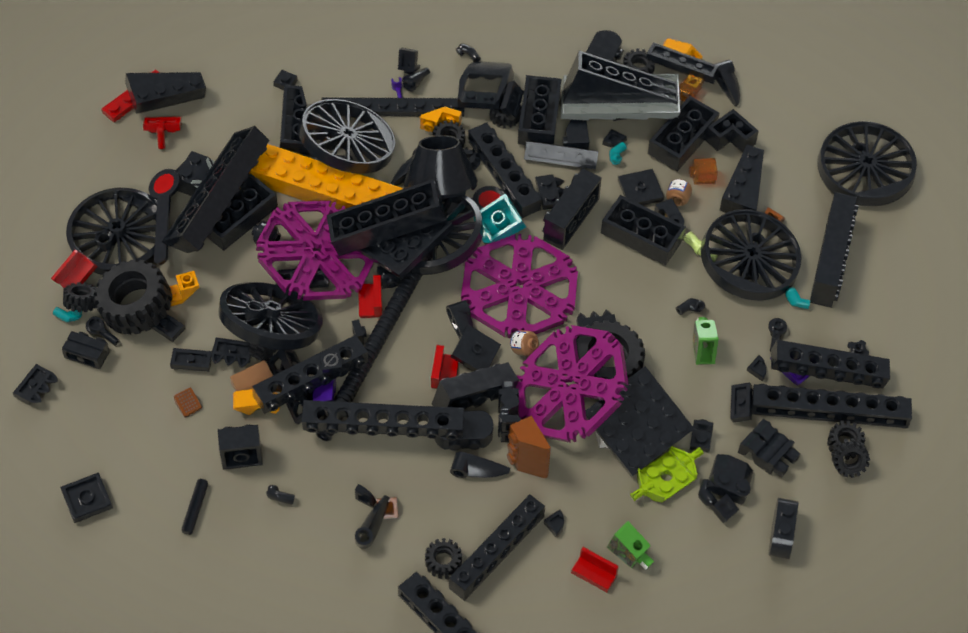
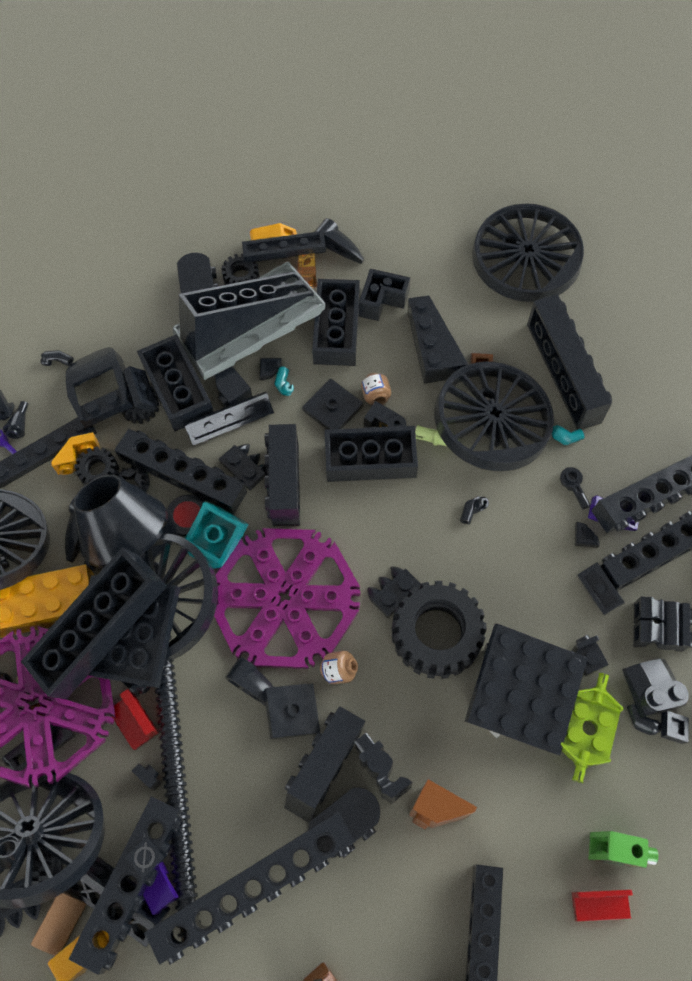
camera: 30 degrees left, 10 degrees up
(443, 366) = (272, 758): red panel -> none
(475, 466) = (389, 862): black piece -> none
(555, 523) = (517, 869): black tile -> none
(582, 374) = (453, 690): magenta plate -> none
(704, 171) = (383, 350): clear orange brick -> none
(706, 332) = (518, 541): bright green torso -> none
(861, 345) = (659, 459): black plate -> none

